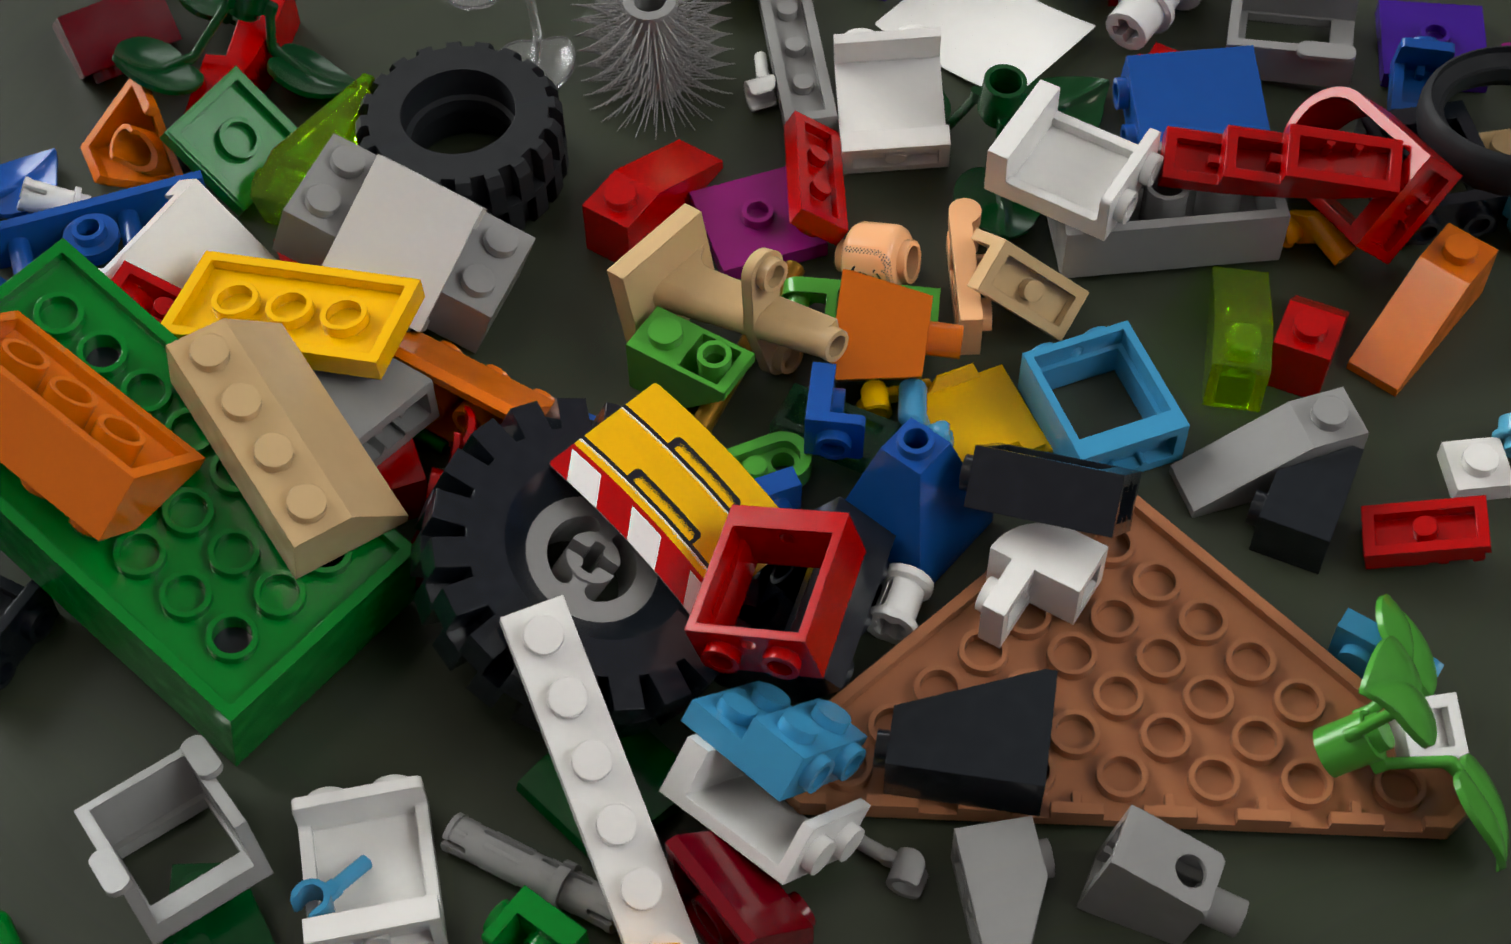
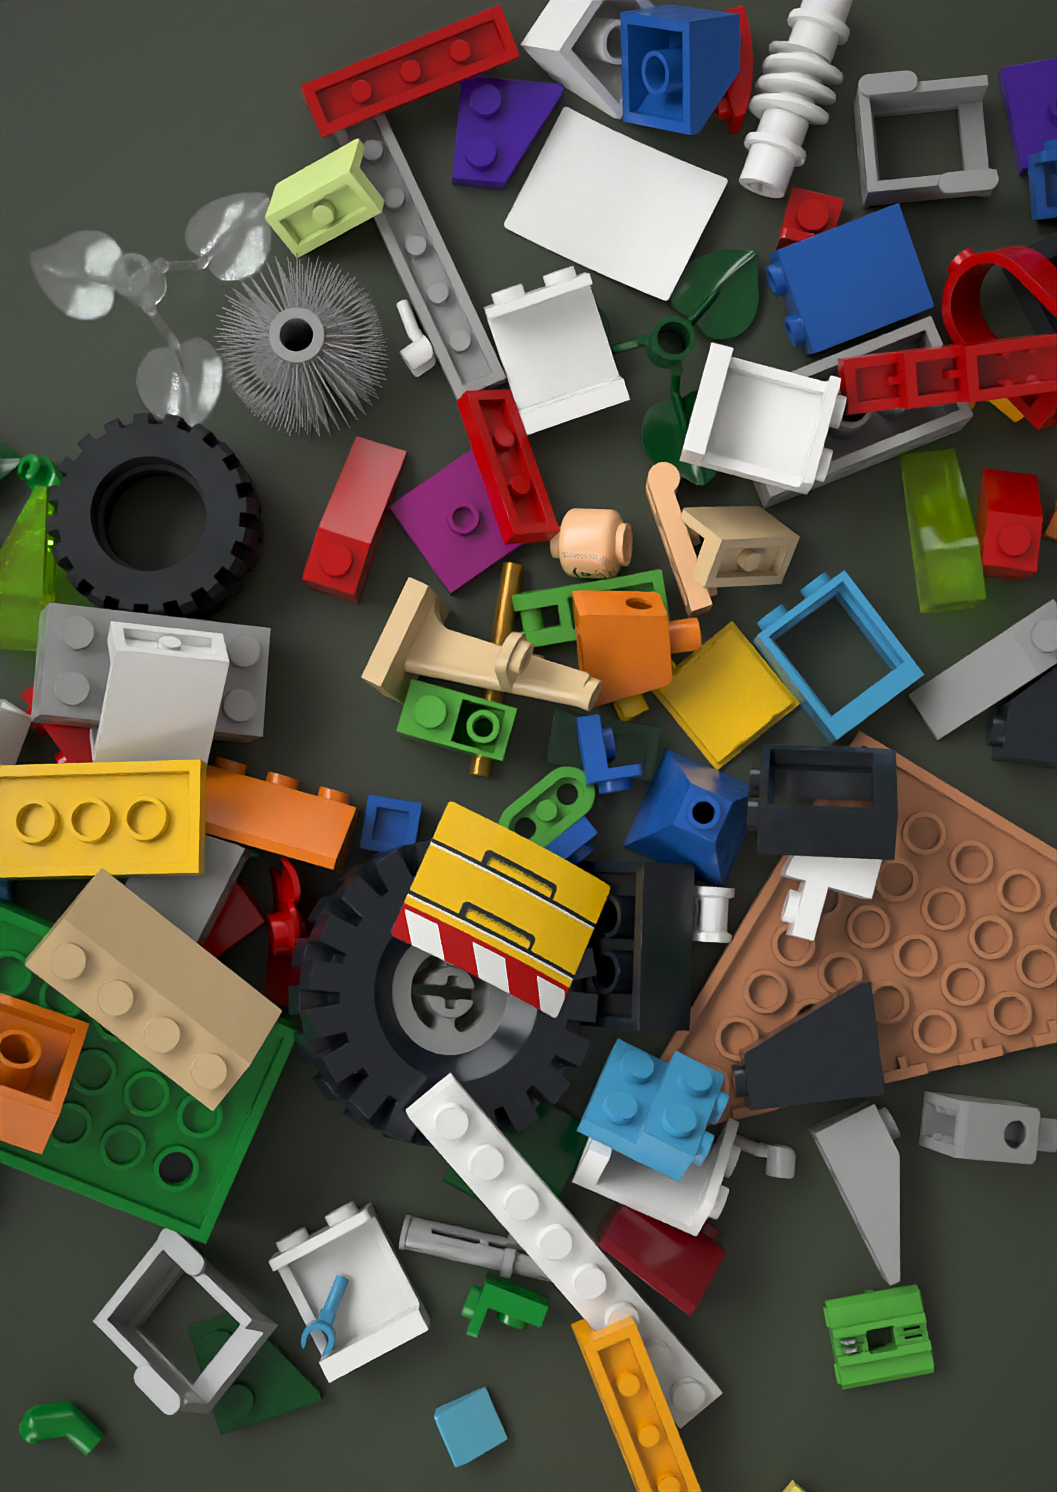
camera: 15 degrees left, 30 degrees up
(776, 538) = (573, 993): red window -> none
(913, 403) = (674, 721): dark azure arm -> none

